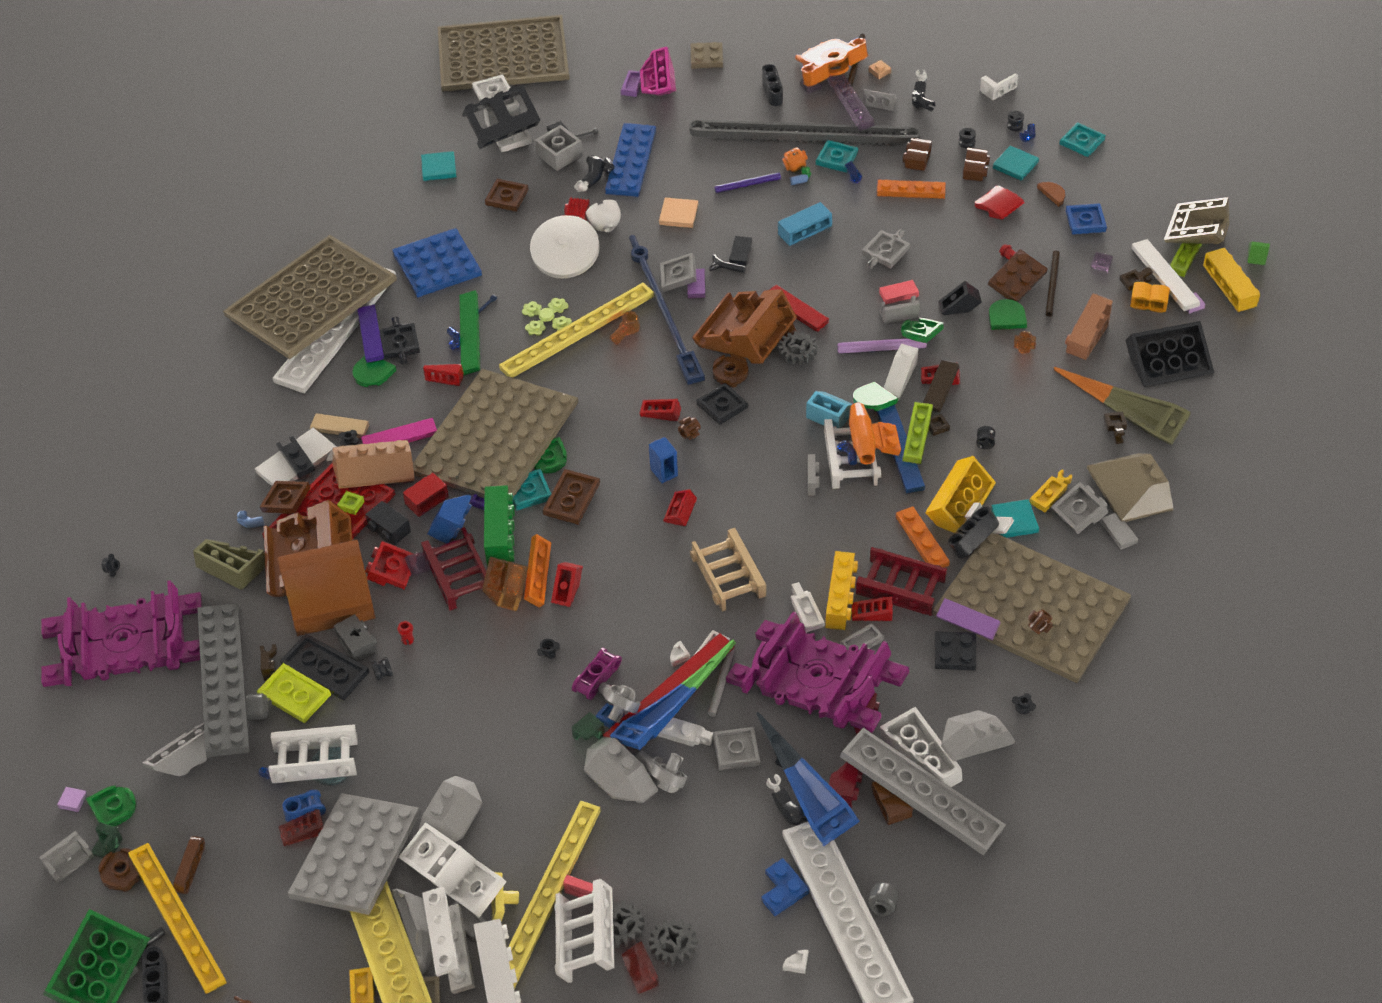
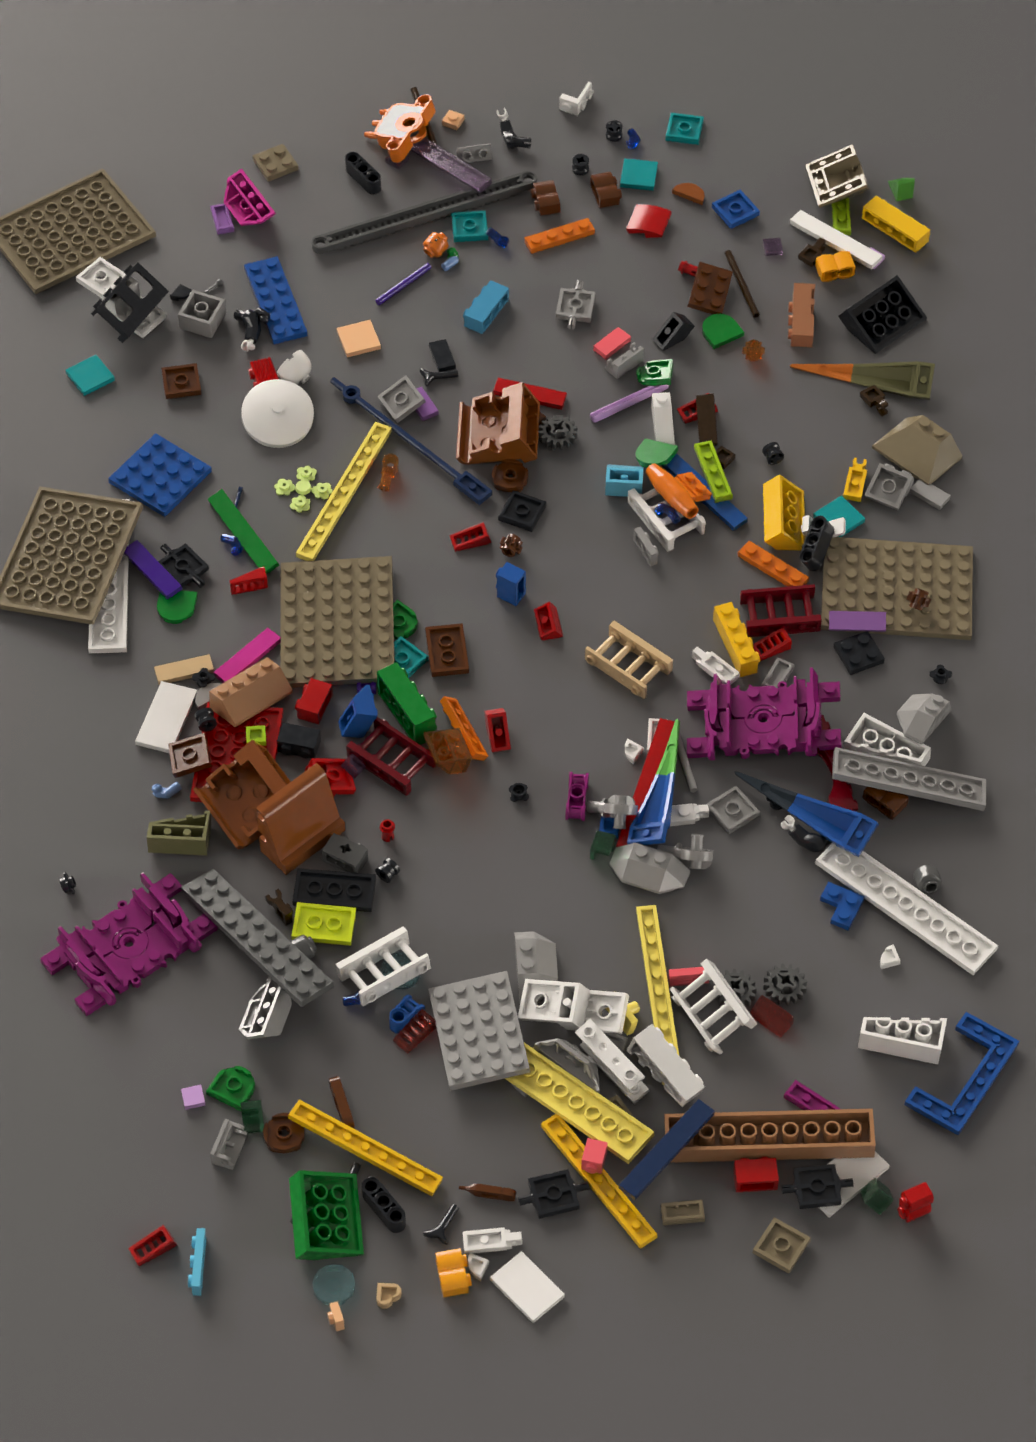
camera: 30 degrees left, 5 degrees up
(296, 457) = (168, 715): black hinge -> none
(319, 472) = (206, 719): none -> black wheel

